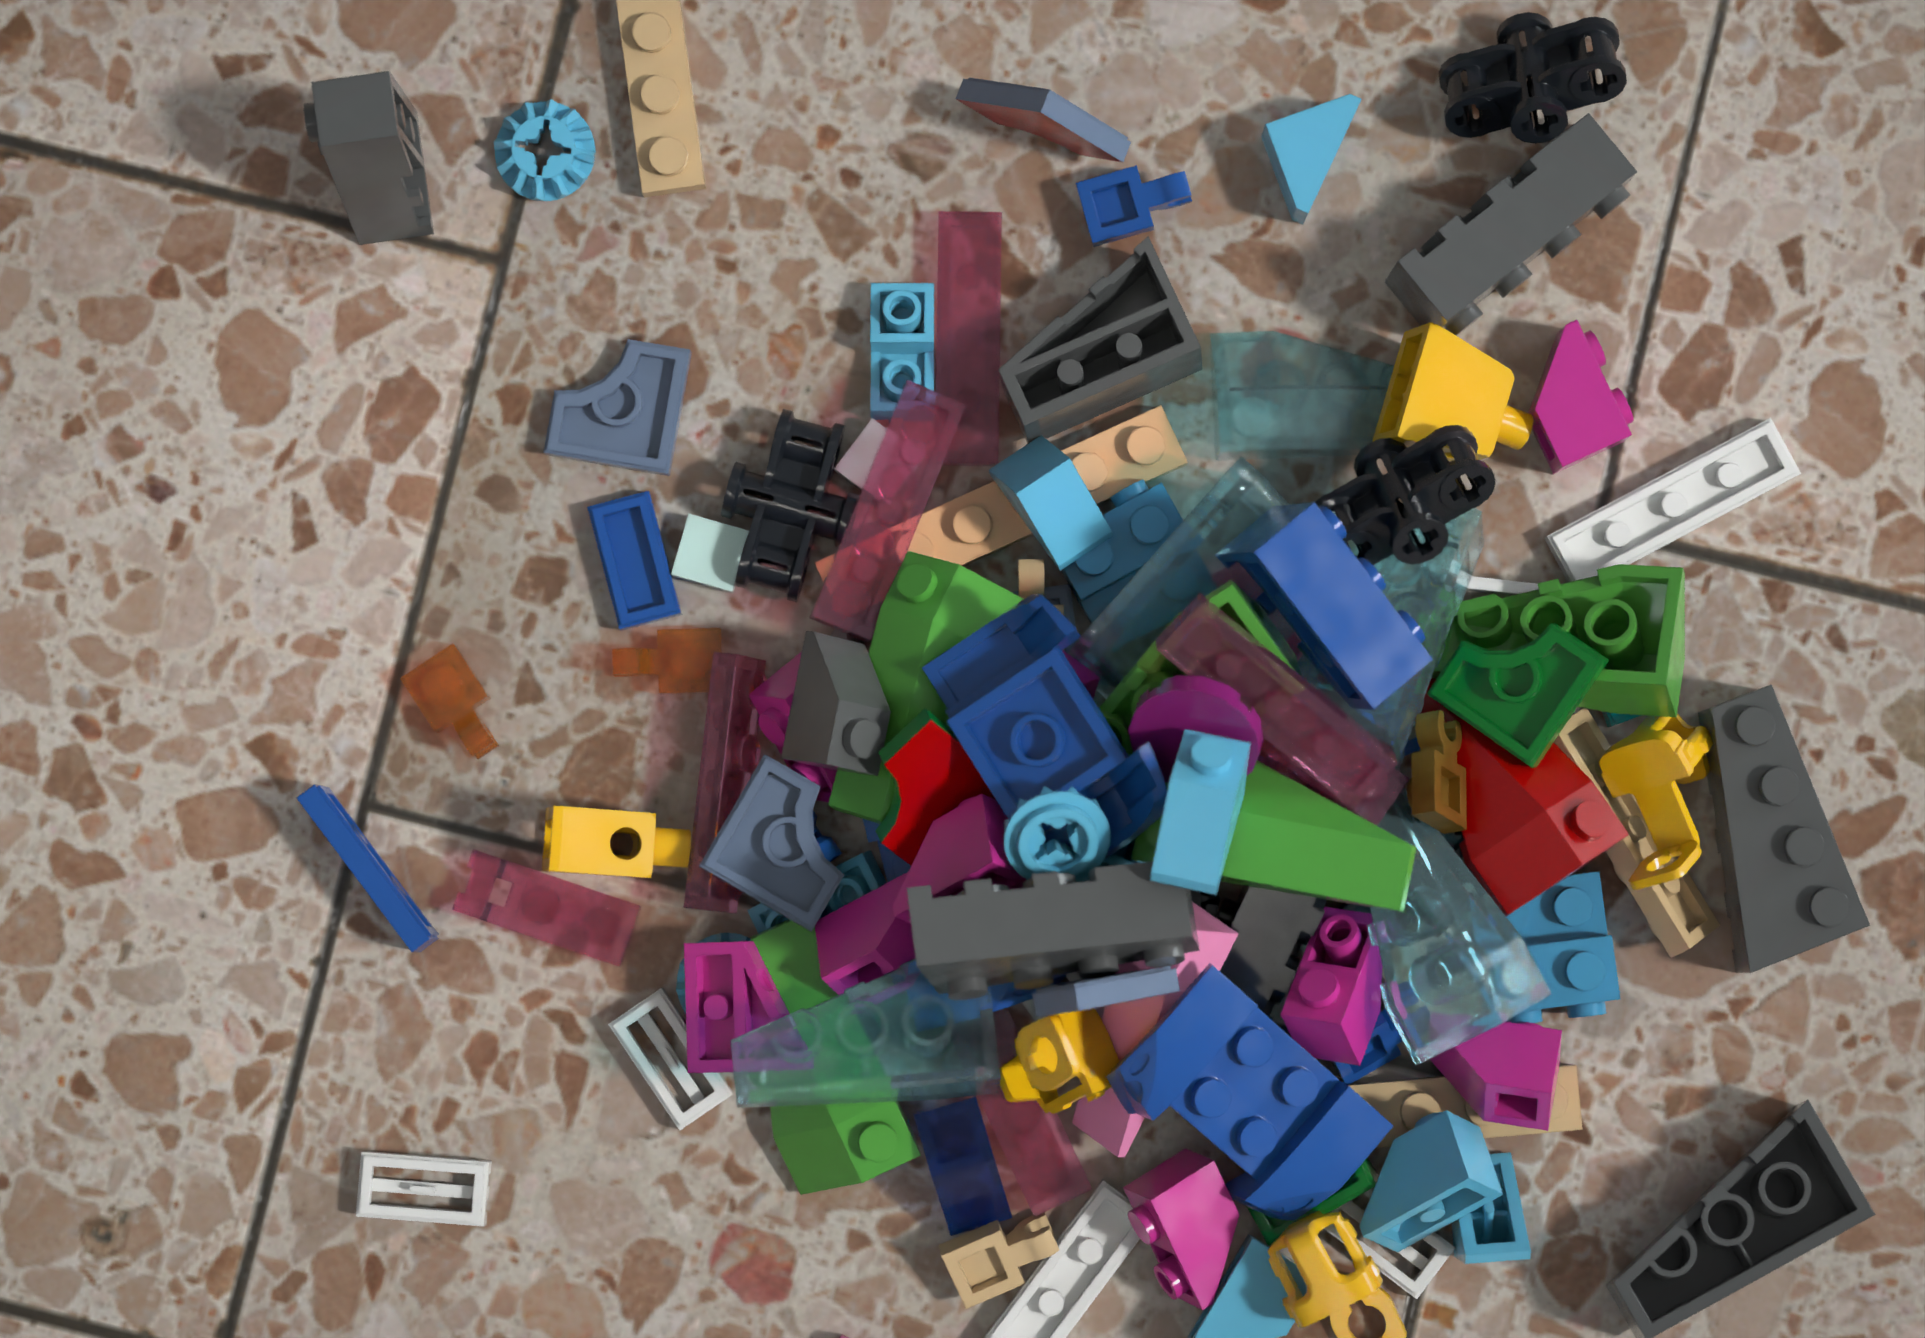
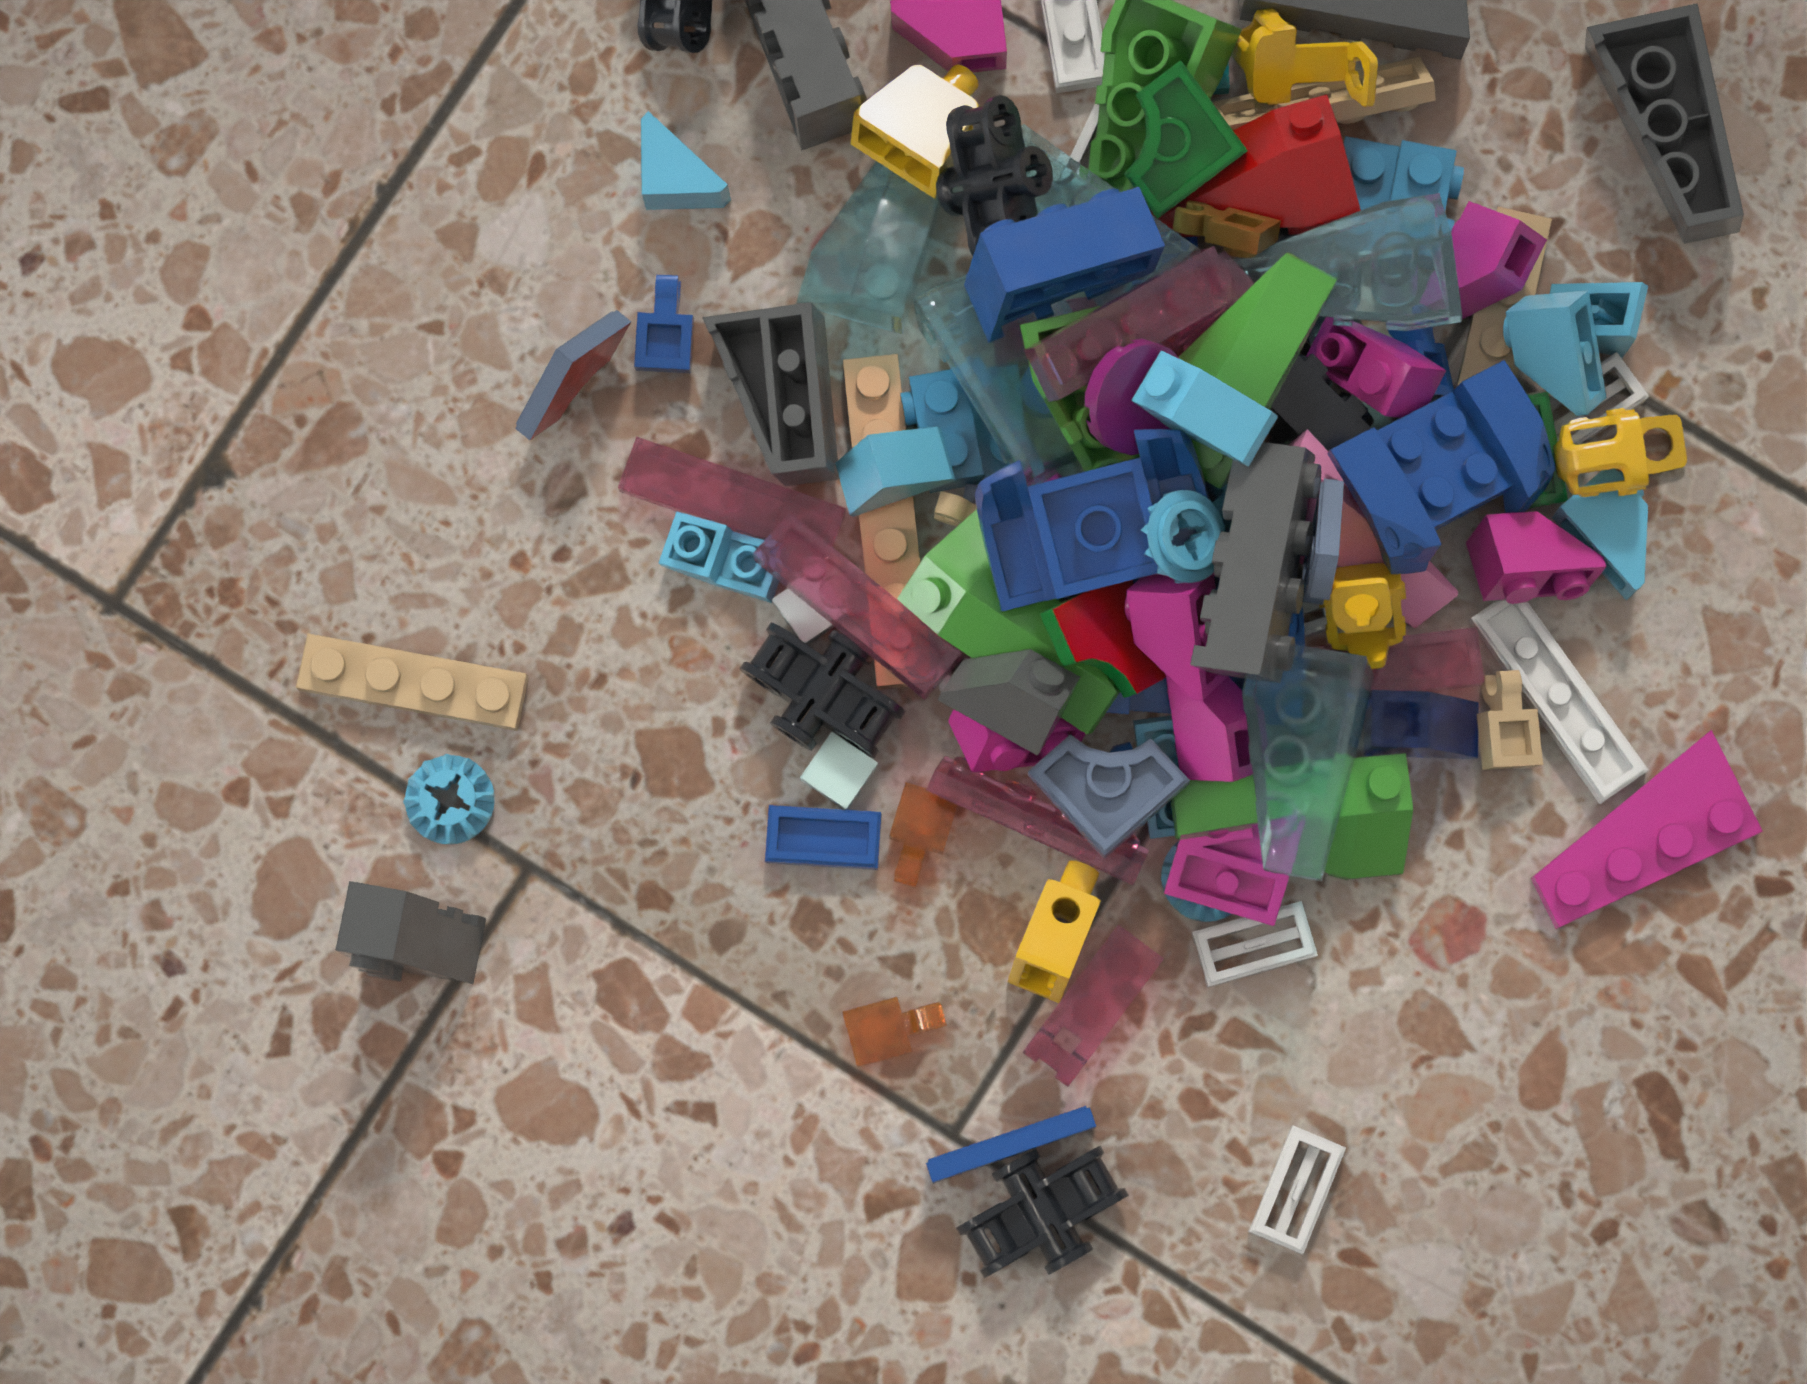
camera: 70 degrees left, 5 degrees down
(293, 911) = (1060, 1200): none -> black axle
(626, 416) = (698, 805): sand blue tile -> none

